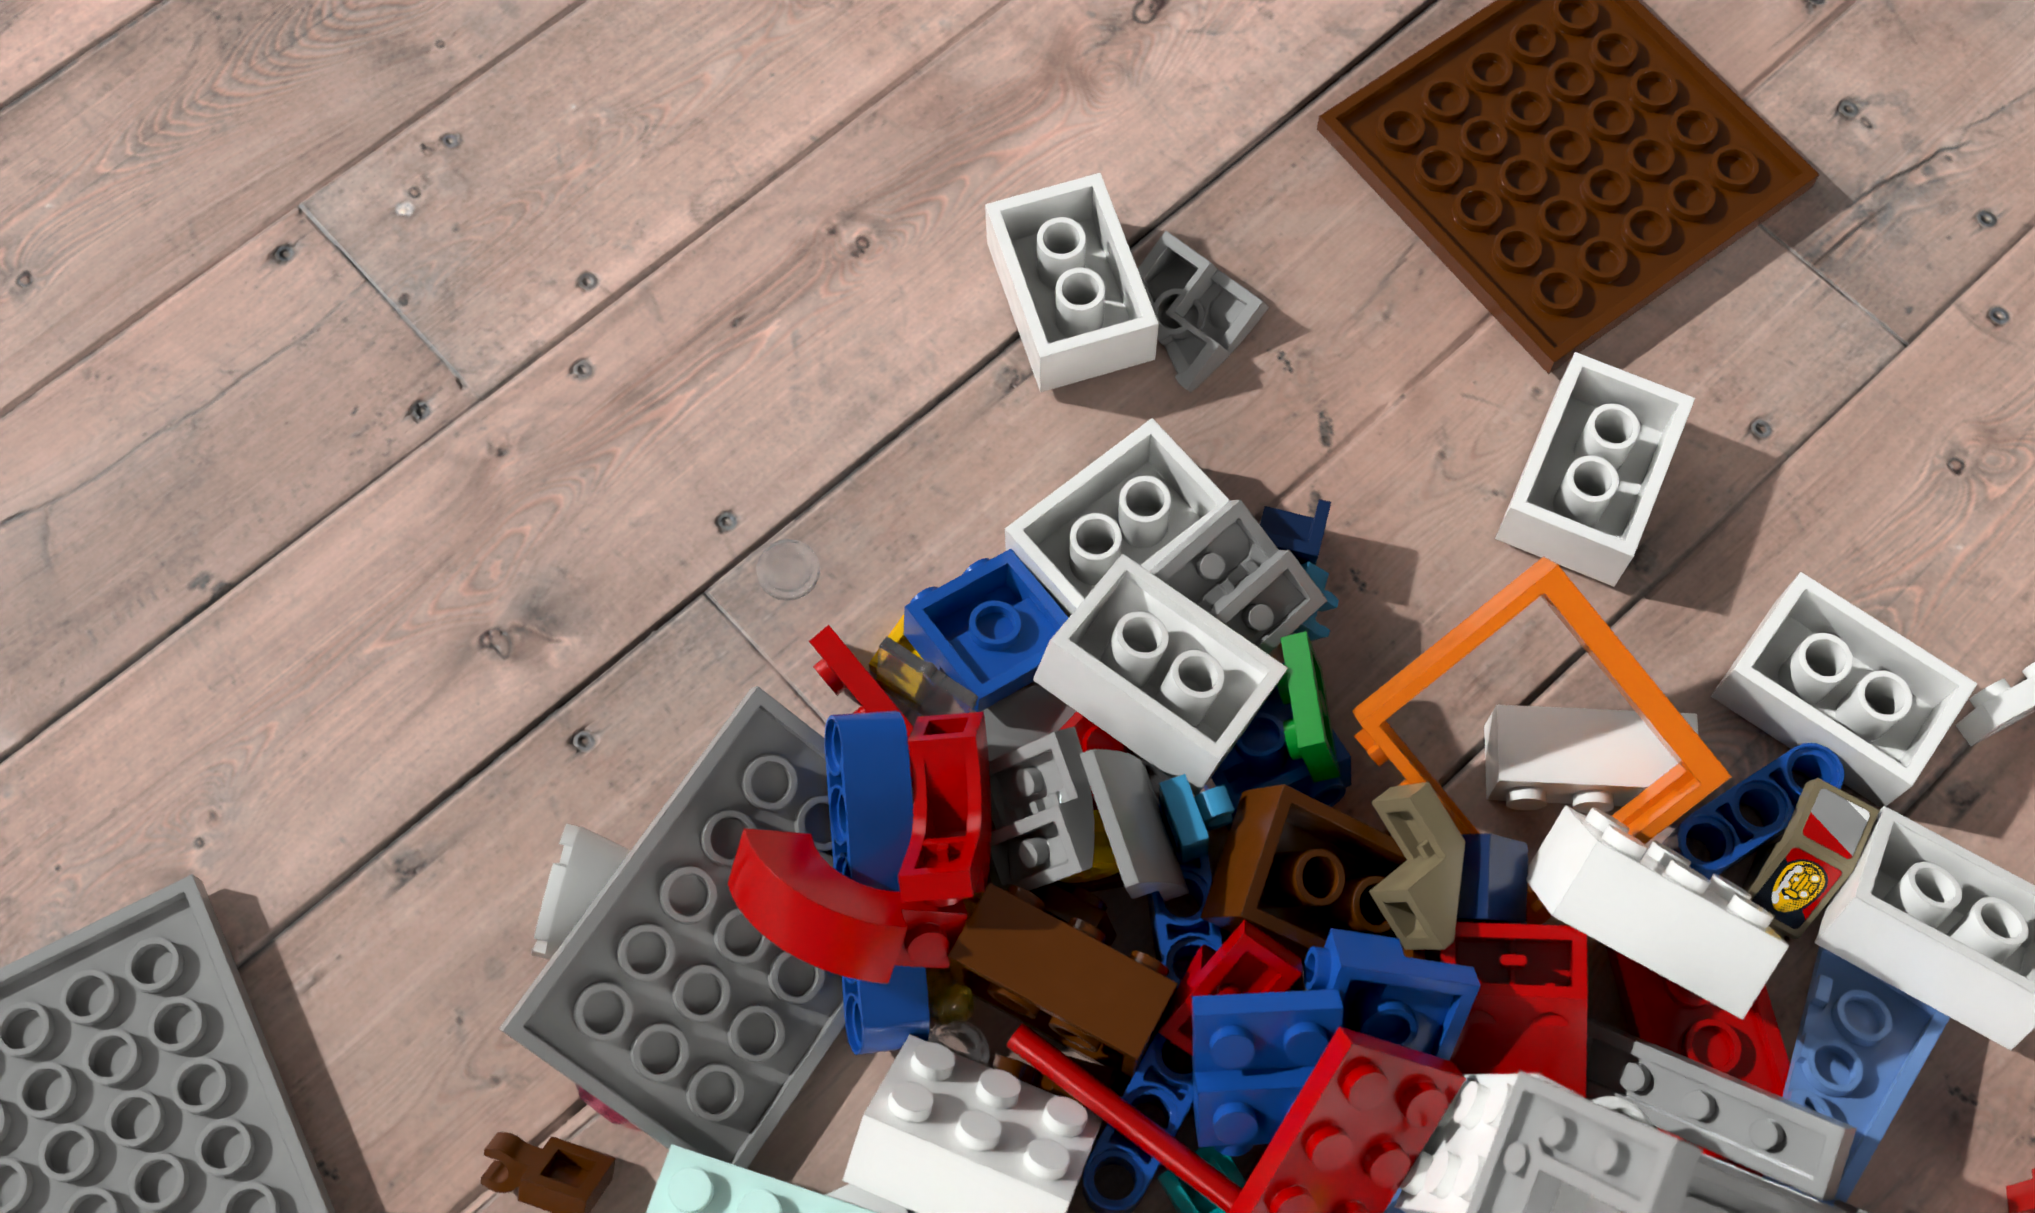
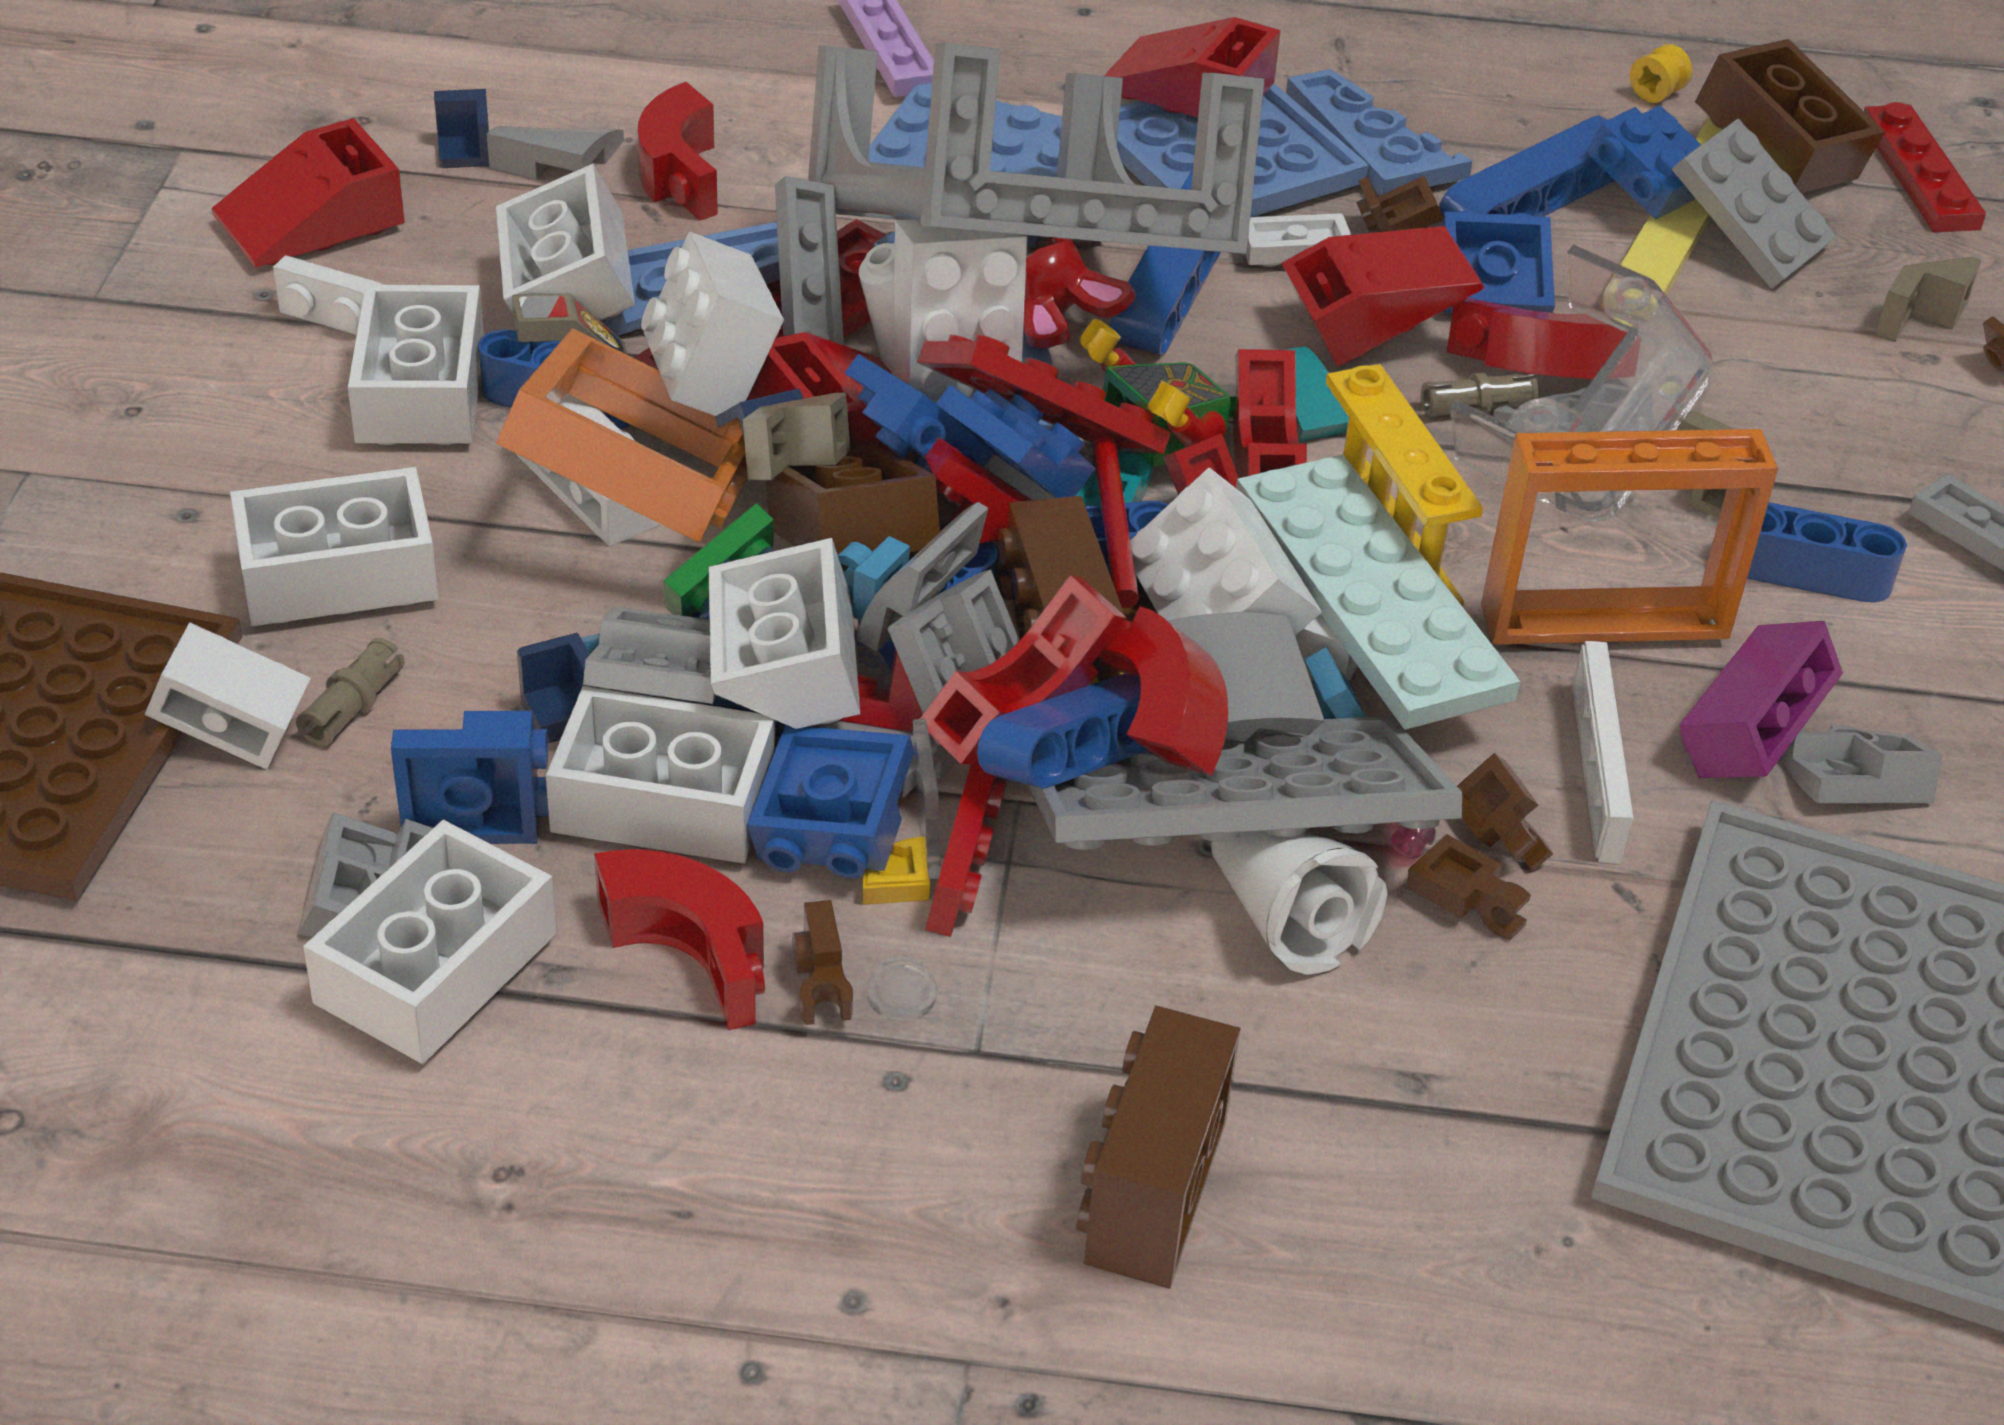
camera: 135 degrees left, 25 degrees down
(476, 584) = (1157, 1145): none -> reddish brown brick
(511, 1072) = (1467, 879): none -> reddish brown plate
(794, 1157) = (1332, 687): none -> dark azure tile
(826, 1038) = (1260, 670): none -> light grey slope
(855, 528) = (820, 954): none -> reddish brown plate
(962, 477) = (689, 908): none -> red arch
(1203, 390) = (475, 776): none -> blue plate
(1415, 405) = (350, 692): none -> dark tan pin
(1446, 293) = (227, 695): none -> white brick

